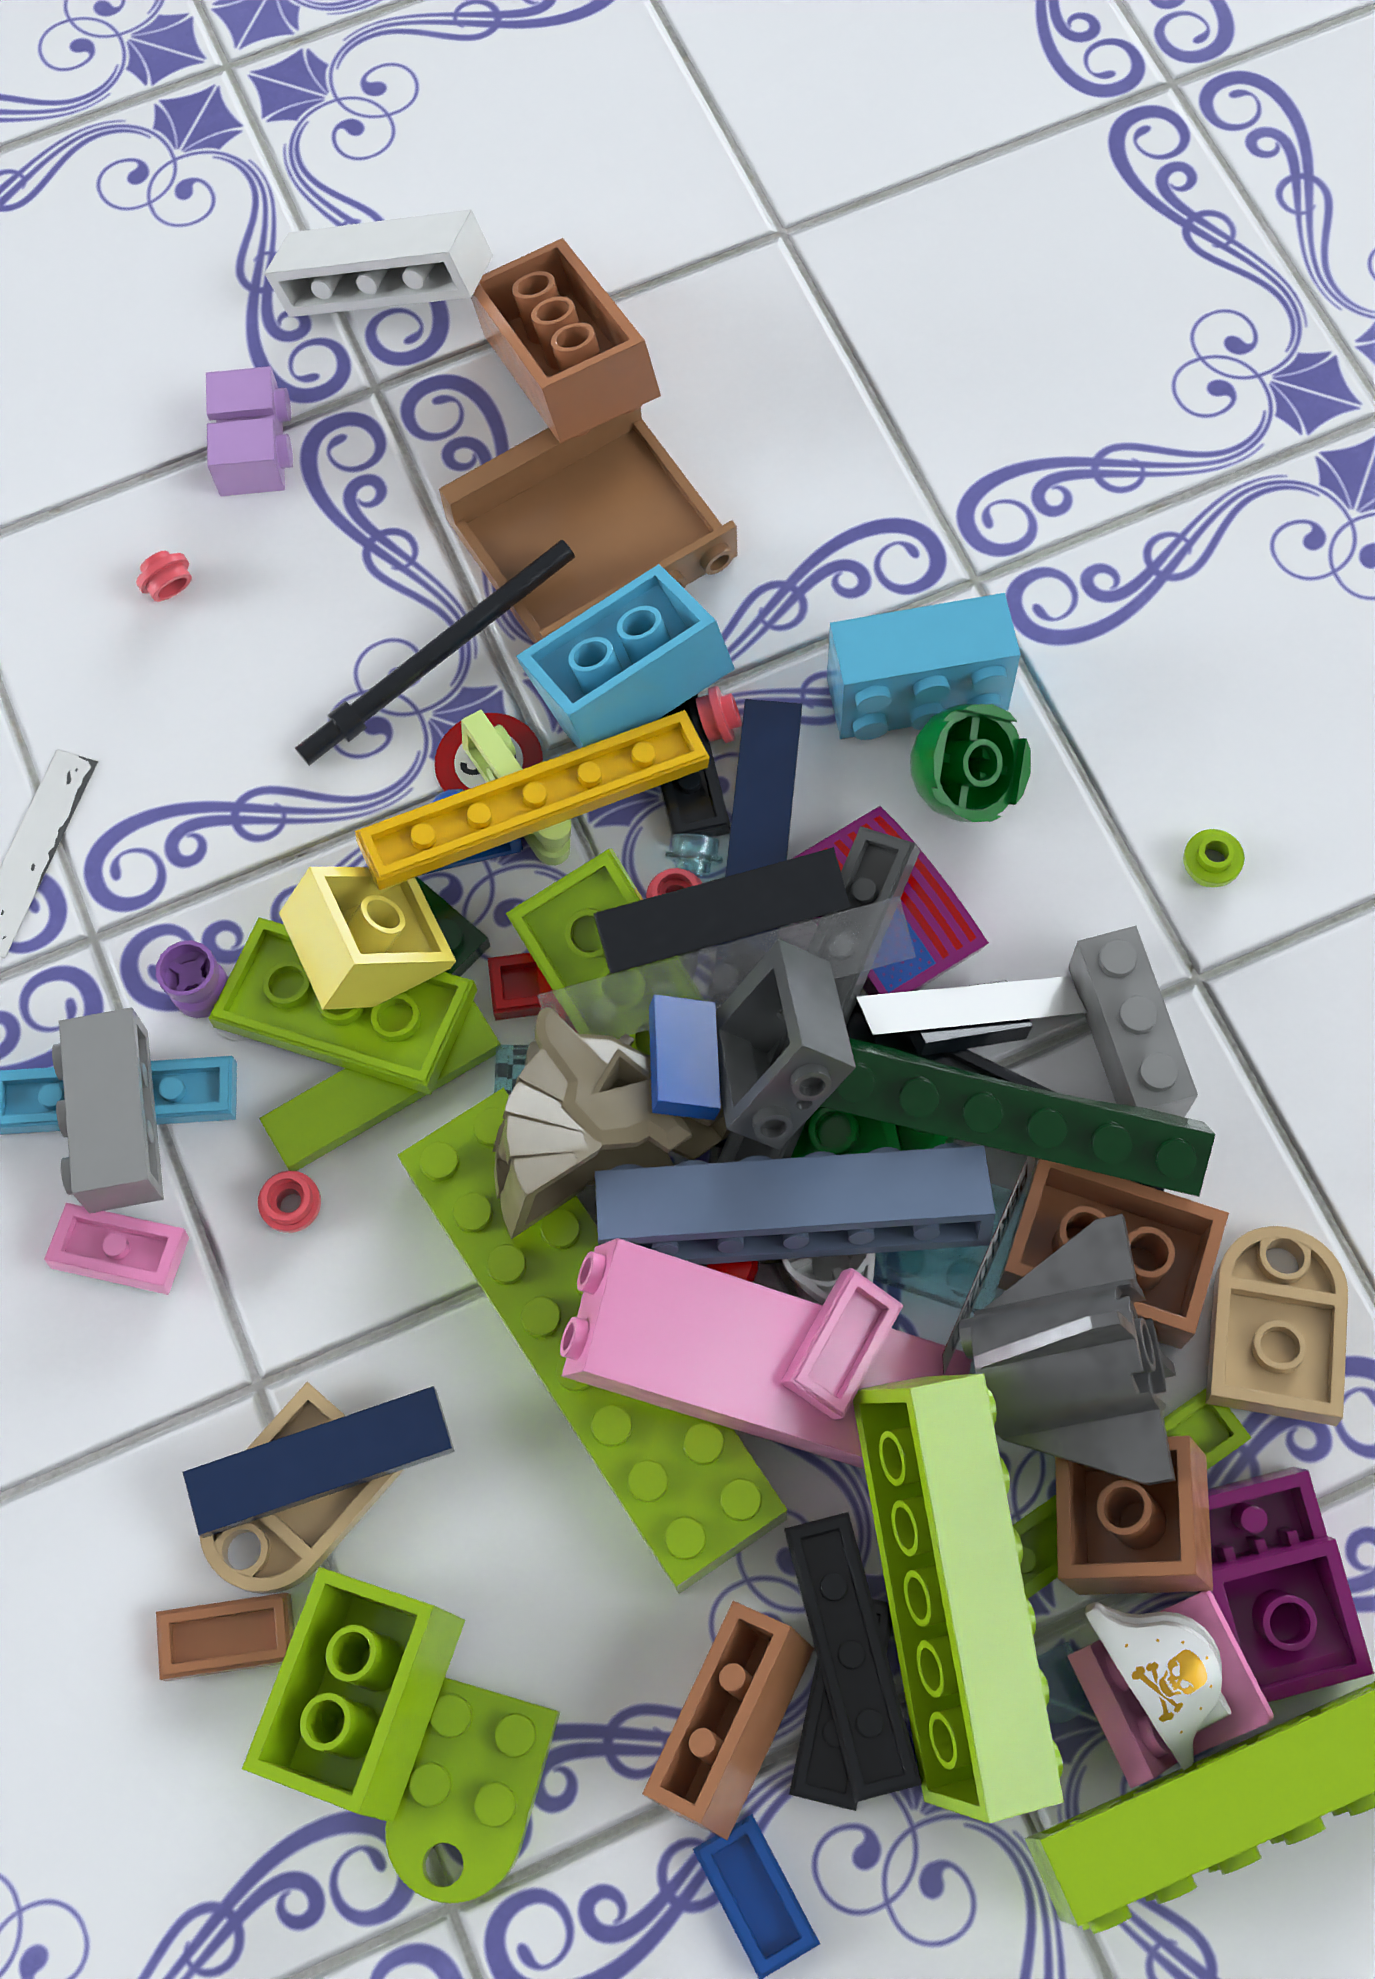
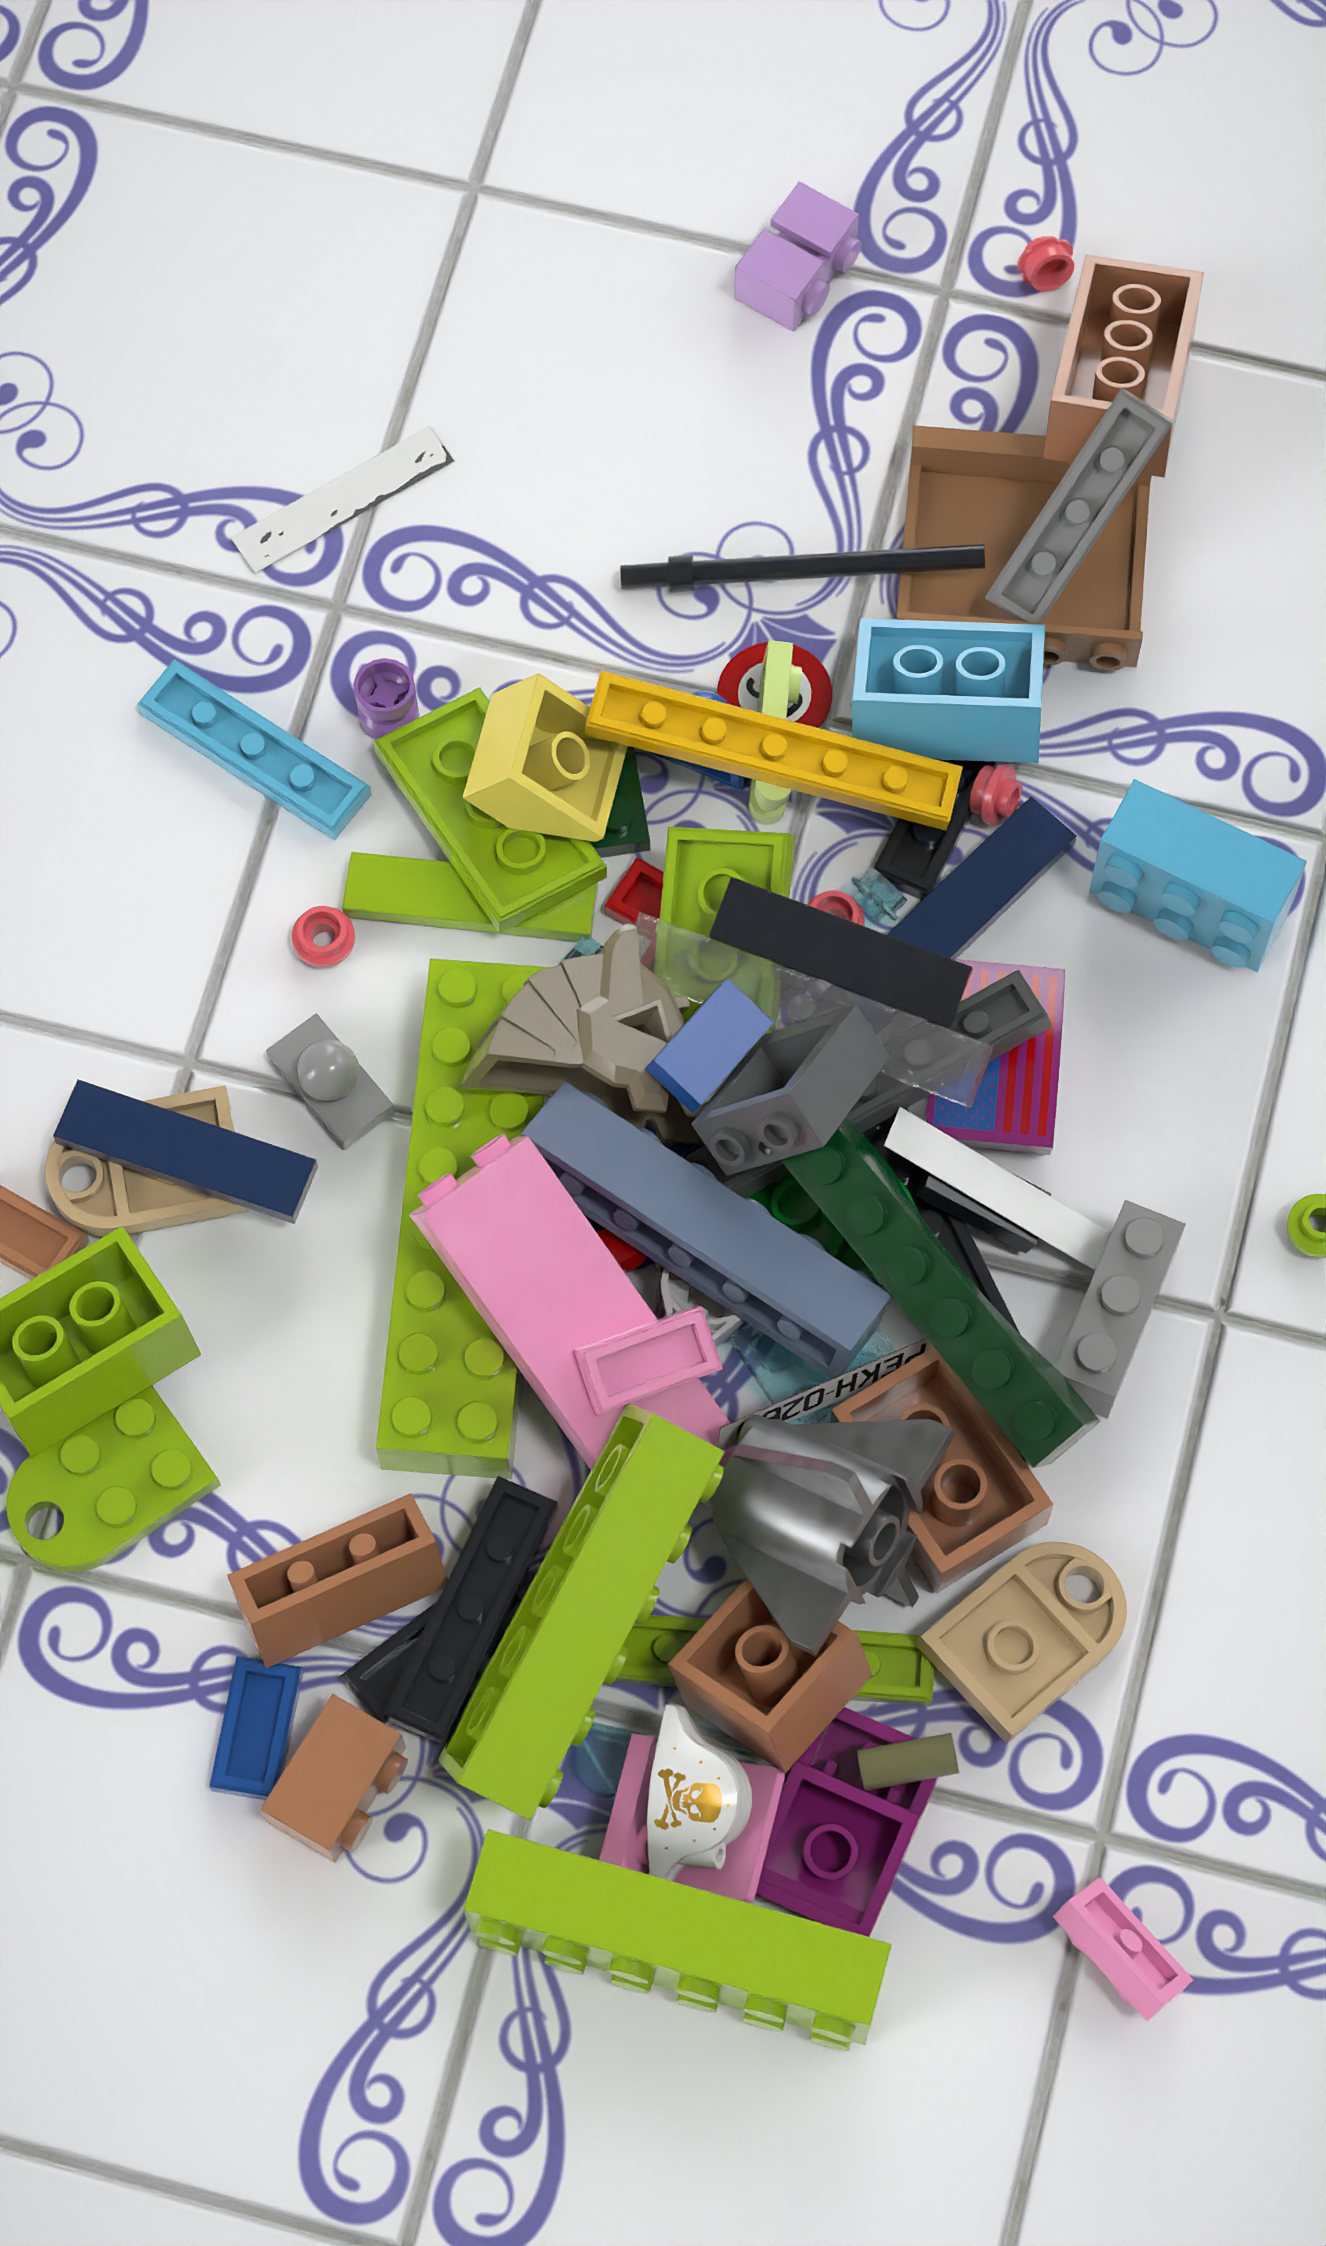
camera: 35 degrees right, 0 degrees up
(108, 1111) = (236, 756): light grey brick -> none
(117, 1248) = (162, 873): bright pink plate -> none
(164, 575) = (629, 337): coral plate -> none
(380, 264) = (1022, 186): white brick -> none
(387, 1312) = (330, 1081): none -> light grey tile
(436, 319) = (1046, 263): none -> coral plate
(620, 457) = (1079, 508): none -> light grey tile
(859, 1889) = (336, 1779): none -> nougat brick
(970, 762) = (1169, 989): green cylinder -> none
(1291, 1502) = (908, 1761): none -> olive axle

